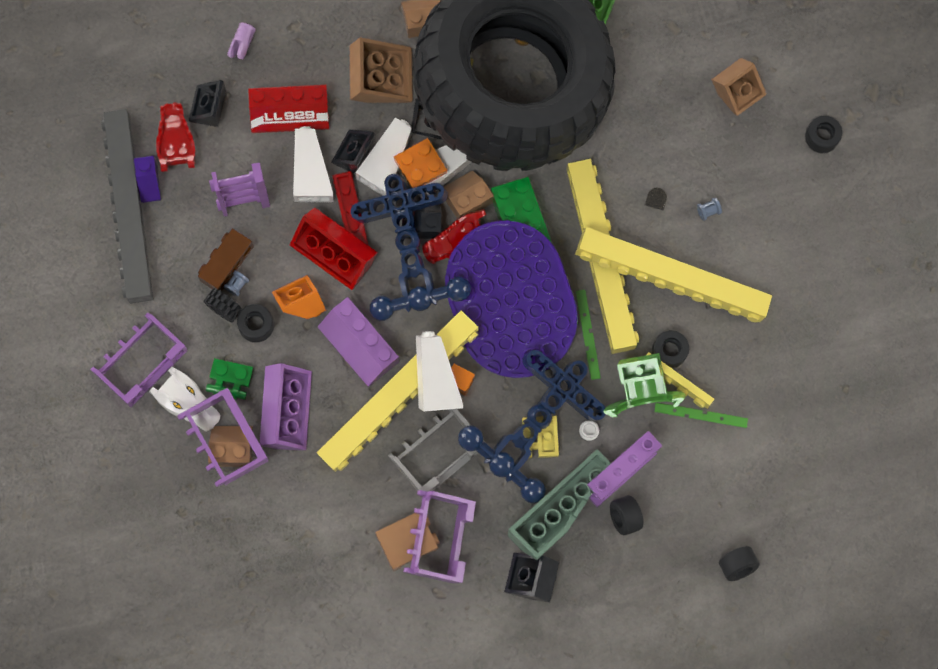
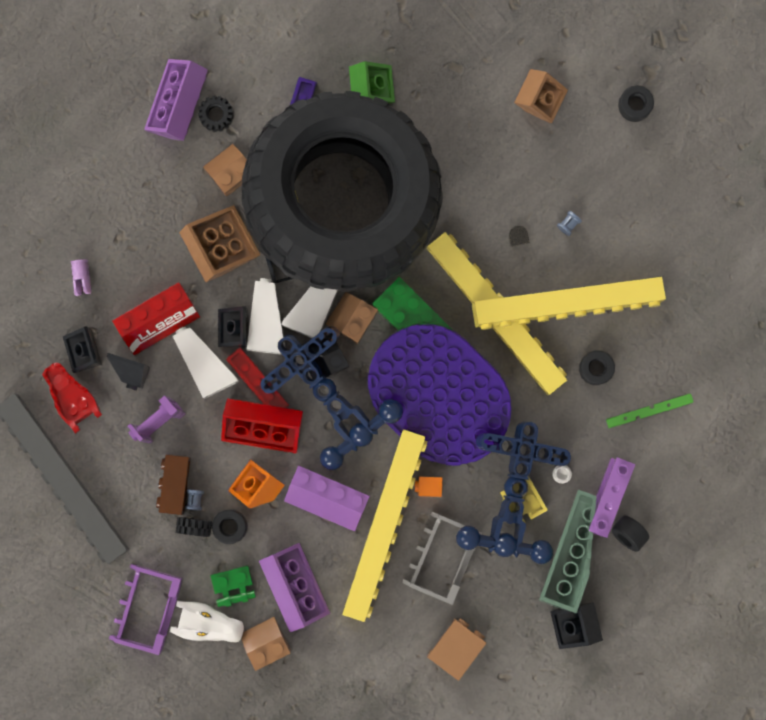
camera: 25 degrees left, 10 degrees up
(147, 179) = (66, 446): dark purple slope -> none
(227, 396) = (287, 636): medium lavender hinge -> none
(241, 141) = (129, 371): none -> black slope
(420, 164) = (299, 313): orange plate -> none
(435, 377) = (412, 502): white slope -> none
(444, 244) = (359, 366): red animal -> none
(465, 514) = (509, 651): medium lavender hinge -> none
(588, 337) = (521, 392): bright green piece -> none
(643, 384) = (588, 411): bright green piece -> none
(683, 385) = (608, 392): light yellow plate -> none
(739, 563) = (744, 526): black tyre -> none

